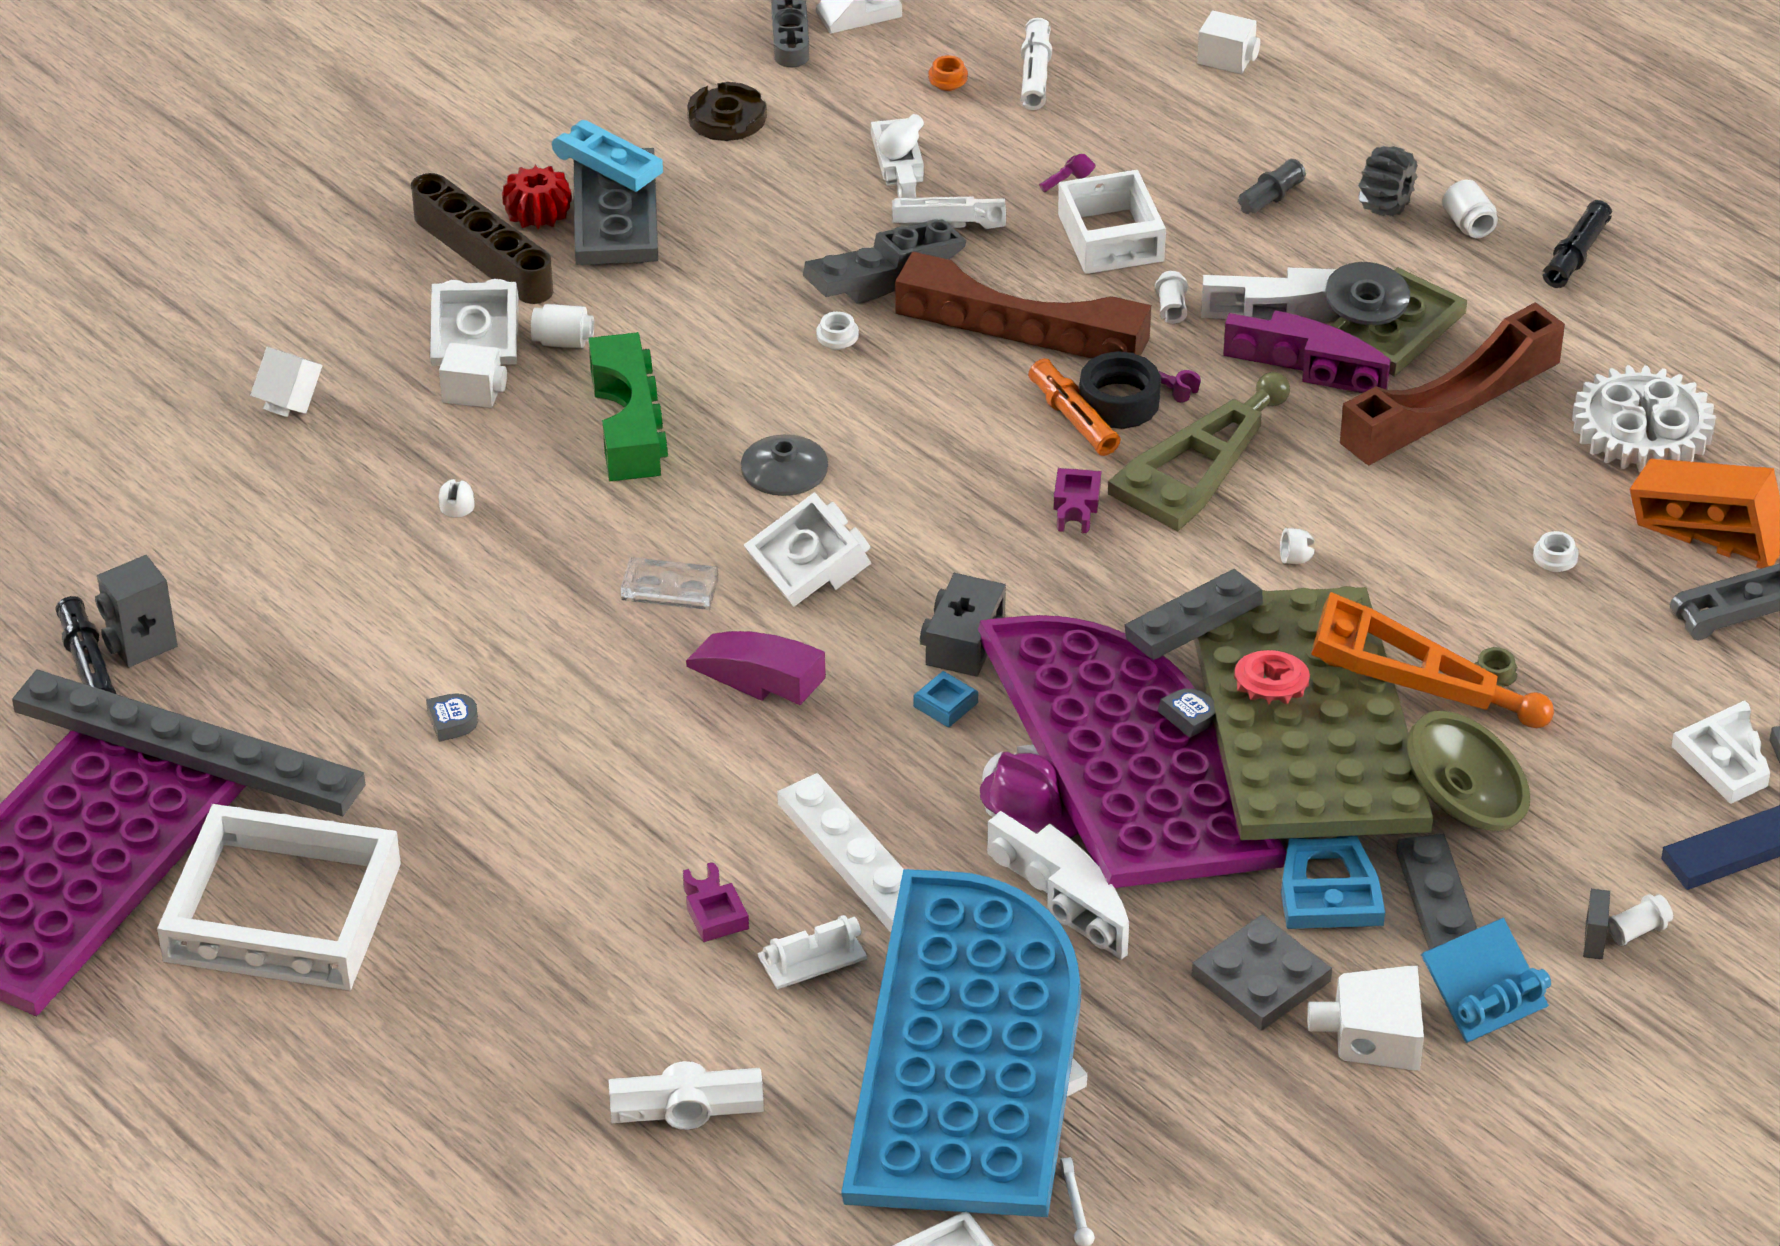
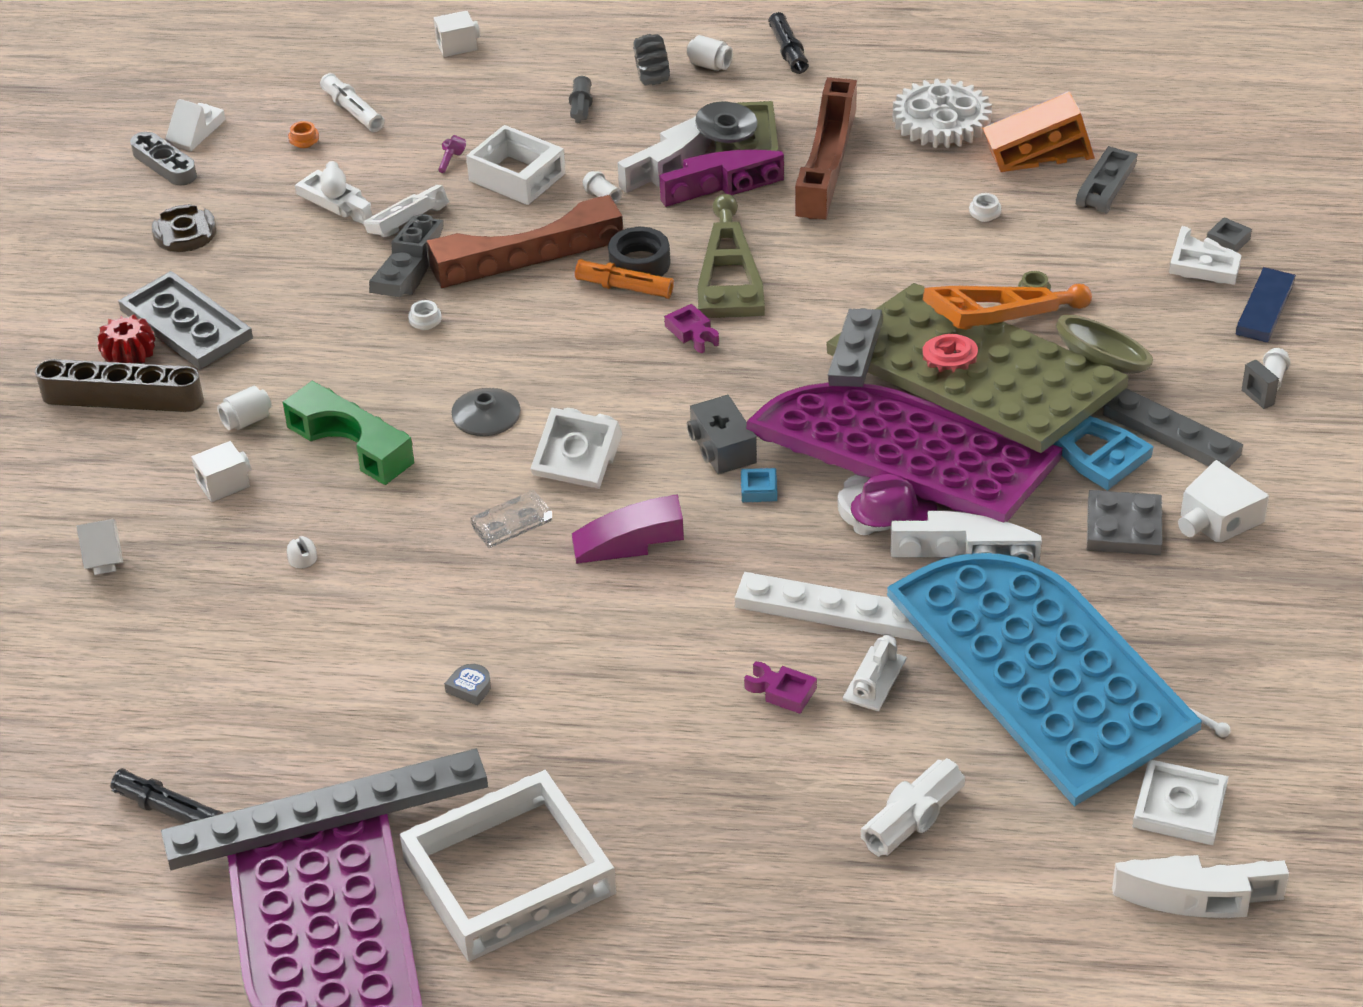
camera: 40 degrees left, 0 degrees up
(136, 611) = (186, 747): dark grey brick -> none
(475, 316) = (178, 434): white plate -> none
(608, 155) = (152, 288): medium azure plate -> none
(1182, 385) = (672, 232): magenta hand -> none
(1188, 710) = (919, 402): dark grey tile -> none
(1294, 546) = (841, 279): white hinge -> none
(1486, 980) = (1249, 447): dark azure hinge -> none

